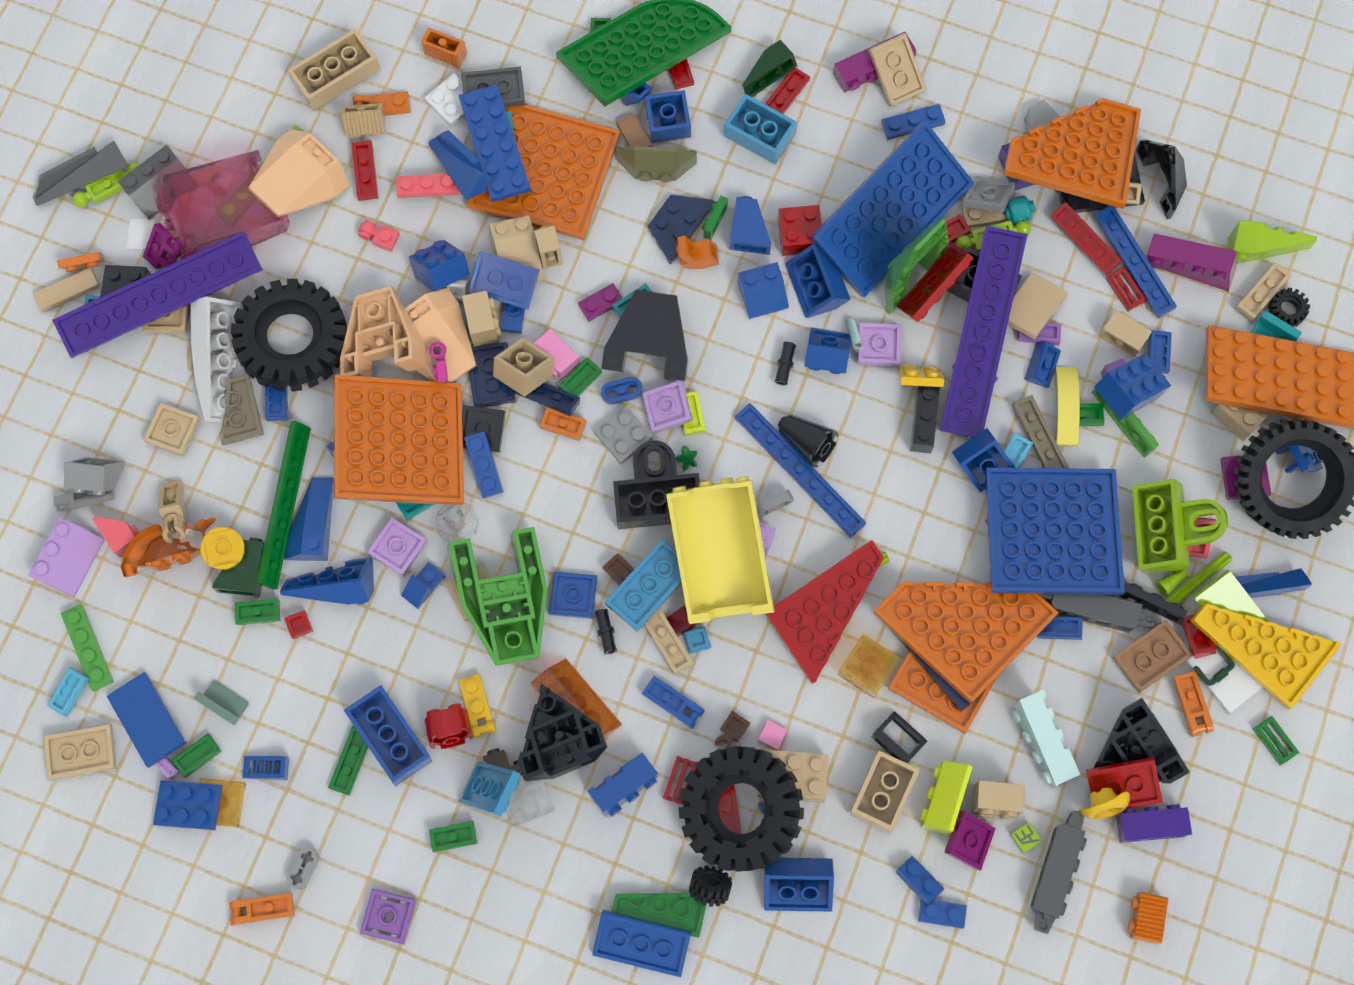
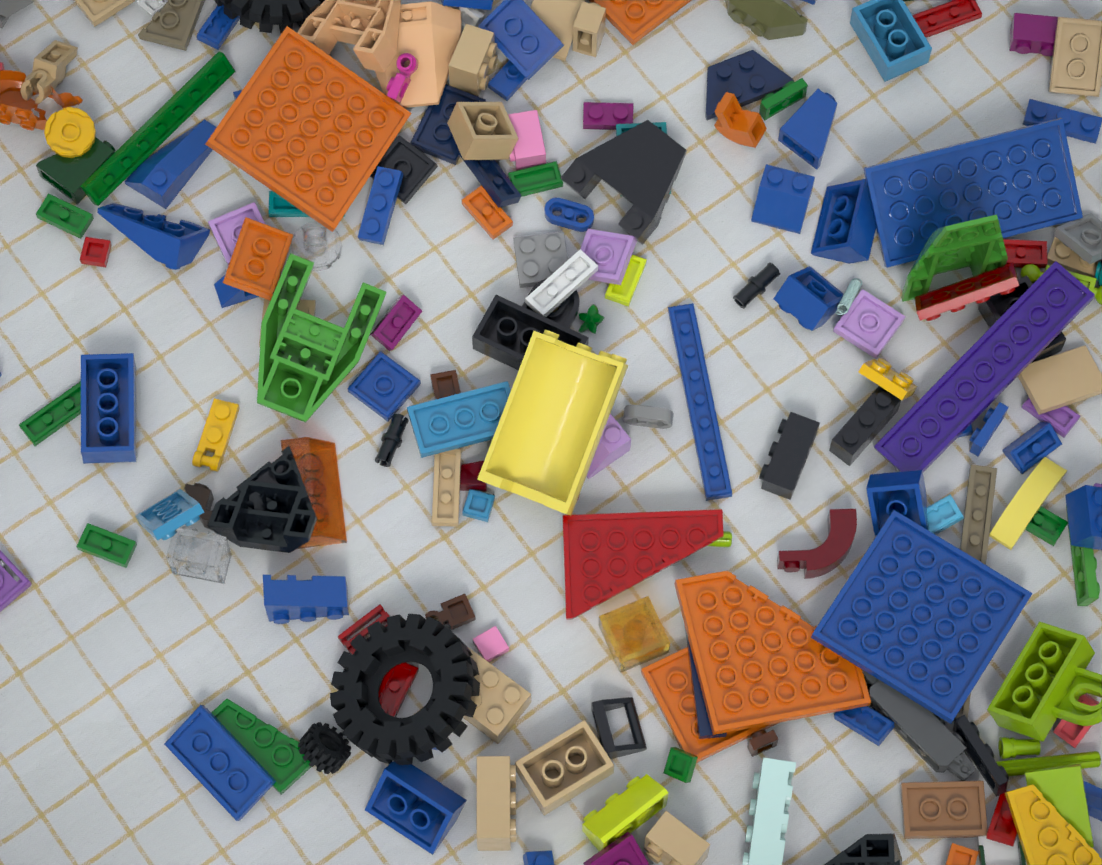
camera: 30 degrees right, 5 degrees down
(424, 558) = (258, 258): none -> orange tile
(448, 726) = (172, 435): red brick -> none
(552, 543) = (396, 322): none -> magenta plate
(653, 445) = (561, 284): none -> white plate
(672, 701) = (411, 549): blue plate -> none
(796, 228) = (860, 151): red brick -> none
(810, 439) = (728, 374): black cone -> none
(855, 848) = (495, 803): none -> tan brick
(887, 471) = (789, 455): none -> black brick
(959, 738) = (680, 764): none -> green tile
(961, 512) = (829, 555): none -> dark red arch
(1002, 686) = (762, 742): none -> reddish brown plate
(1007, 379) = (982, 436): none -> blue plate

